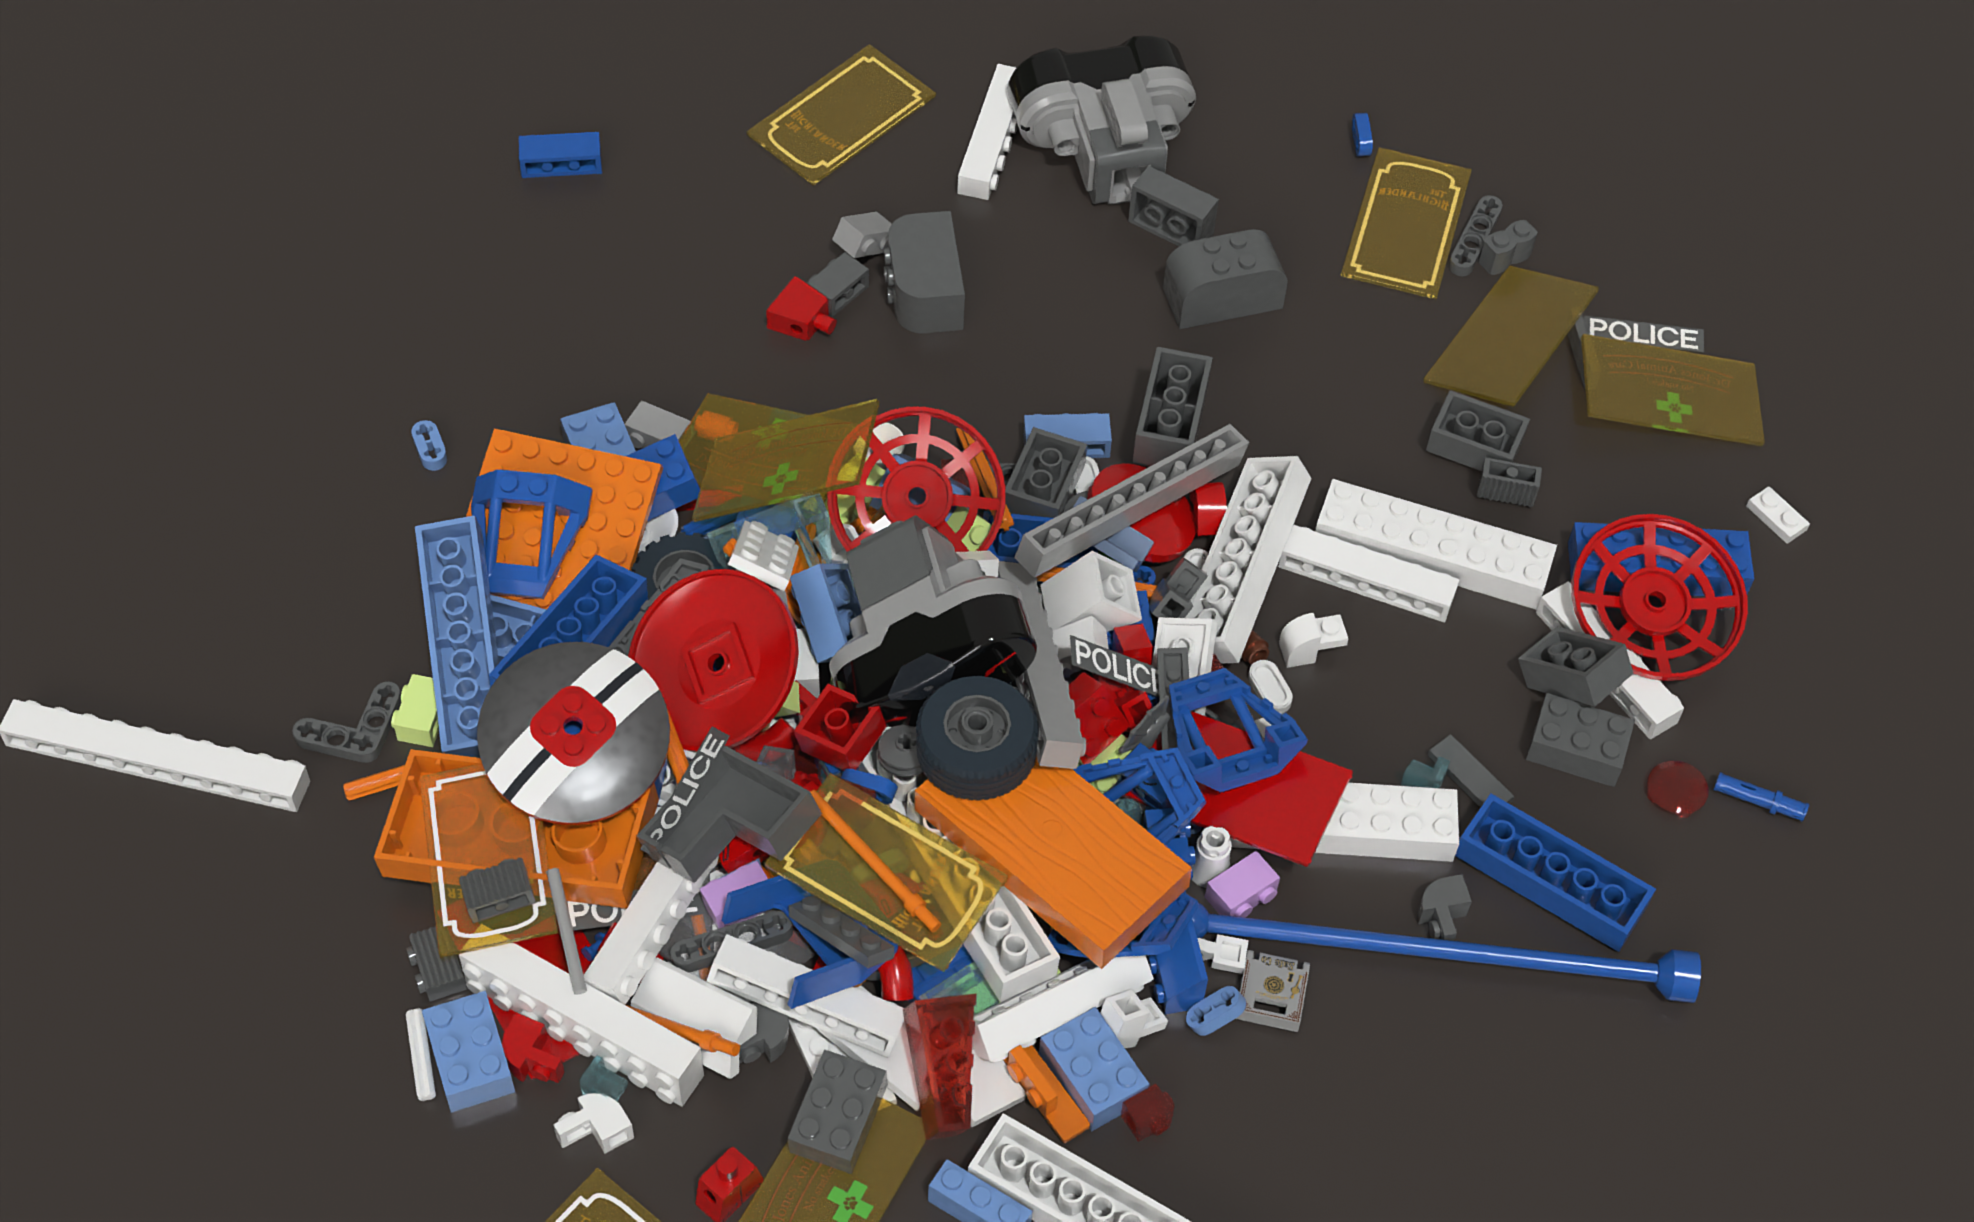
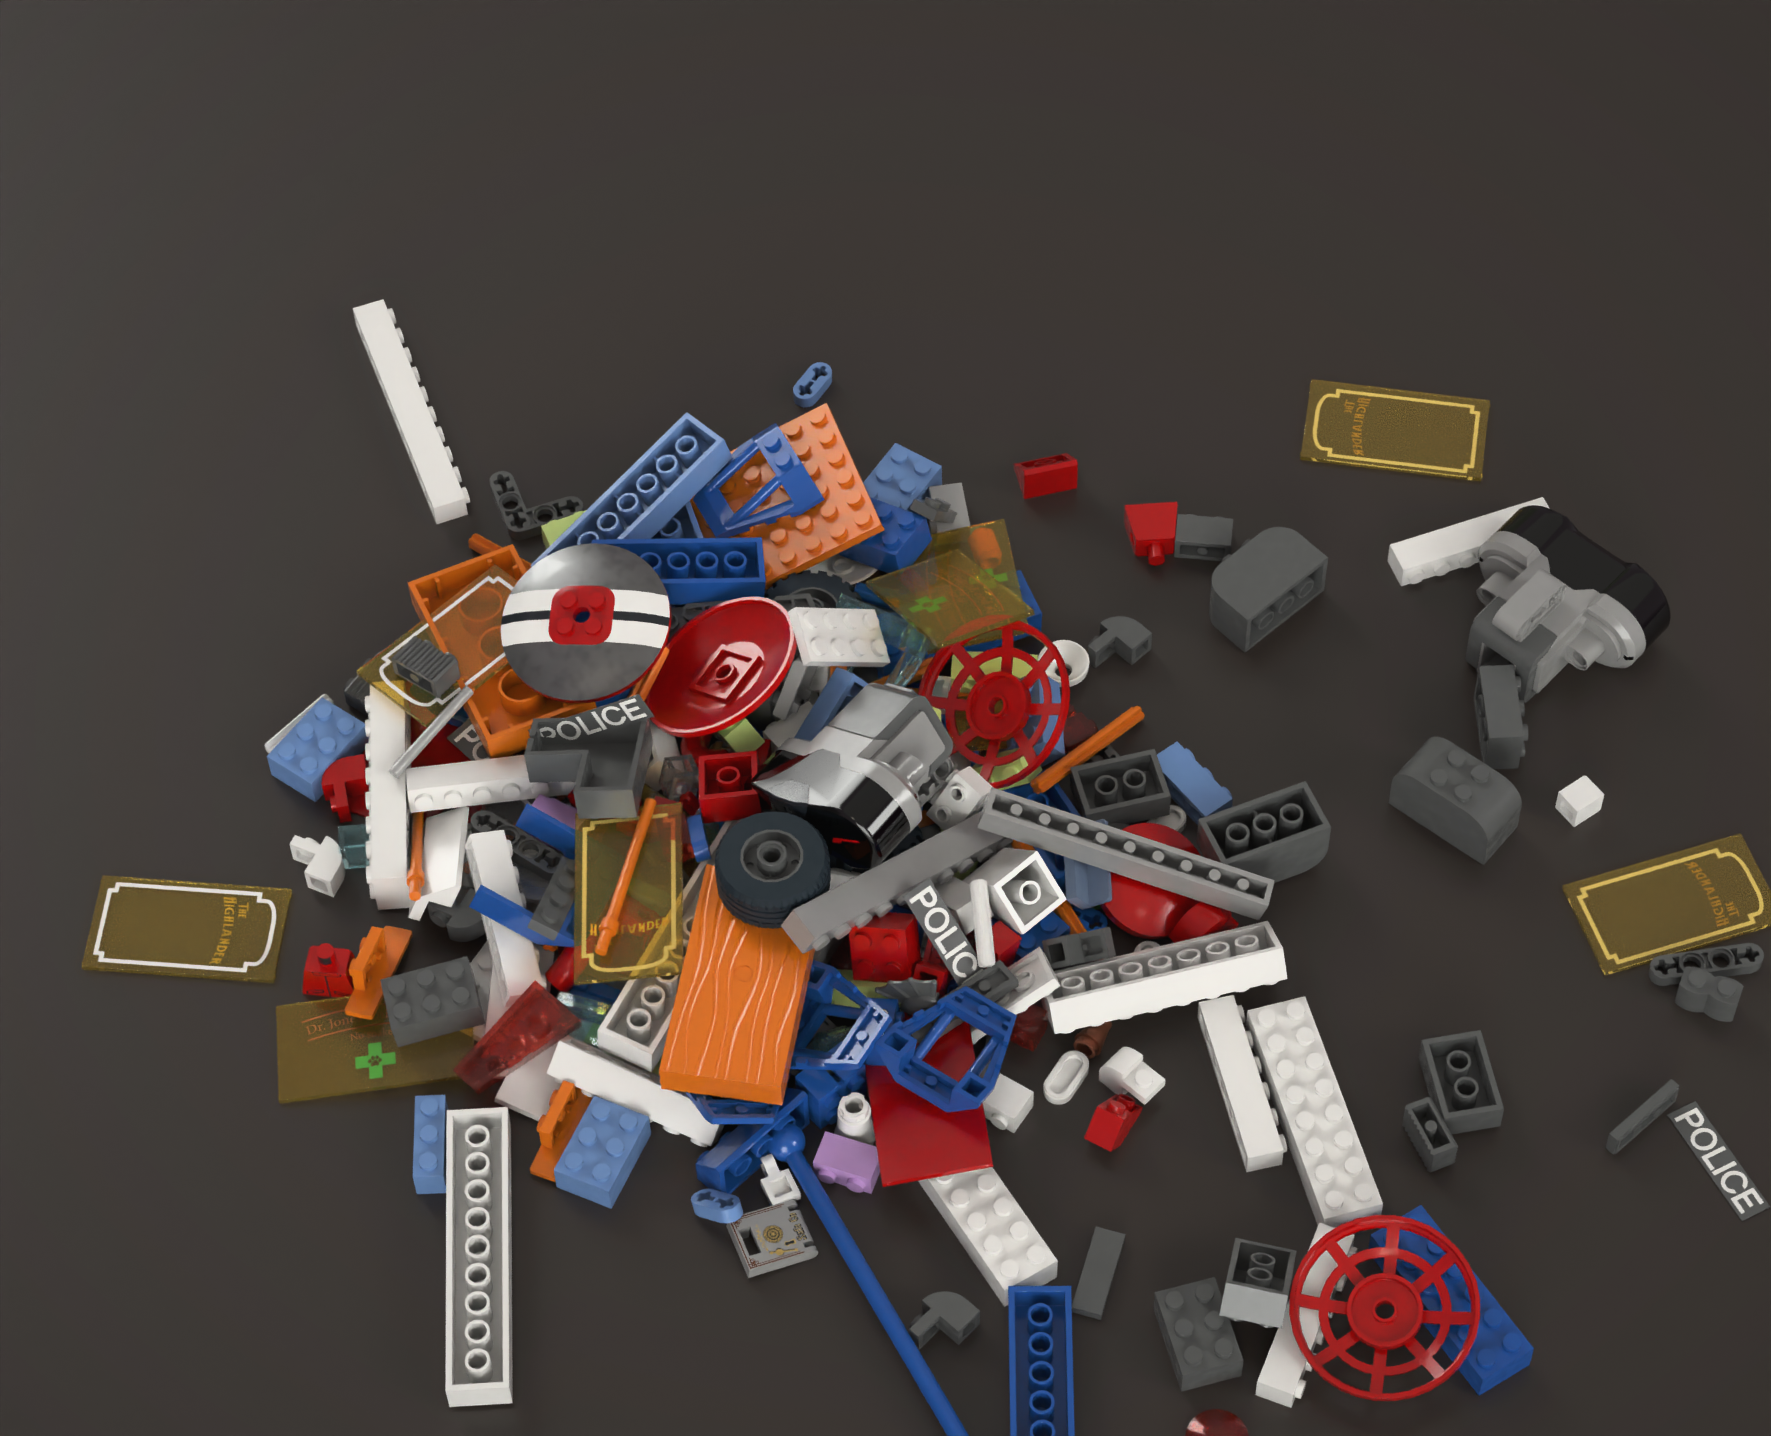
camera: 60 degrees right, 0 degrees up
(560, 154) = (1164, 276): blue brick -> none
(664, 427) = (935, 510): none -> dark grey plate
(678, 344) = (1047, 475): none -> red slope
(759, 1143) = (377, 959): none -> orange bracket
(862, 234) = (1259, 513): light grey brick -> none
(890, 389) = (1121, 636): none -> dark grey brick
(1121, 635) = (982, 923): none -> white axle
(1132, 1017) = (658, 1151): white brick -> none
(1148, 1112) = (594, 1211): clear red brick -> none
(1281, 215) = (1579, 800): none -> white panel
(1342, 677) = (1113, 1121): none -> red slope
(1362, 134) = (1738, 810): blue beam -> none
(1425, 776) = (1067, 1239): clear light blue panel -> none
(1511, 335) = (1604, 1050): clear yellow piece -> none
(1672, 390) = (1659, 1212): clear yellow piece -> none
(1778, 514) = (1596, 1374): white plate -> none

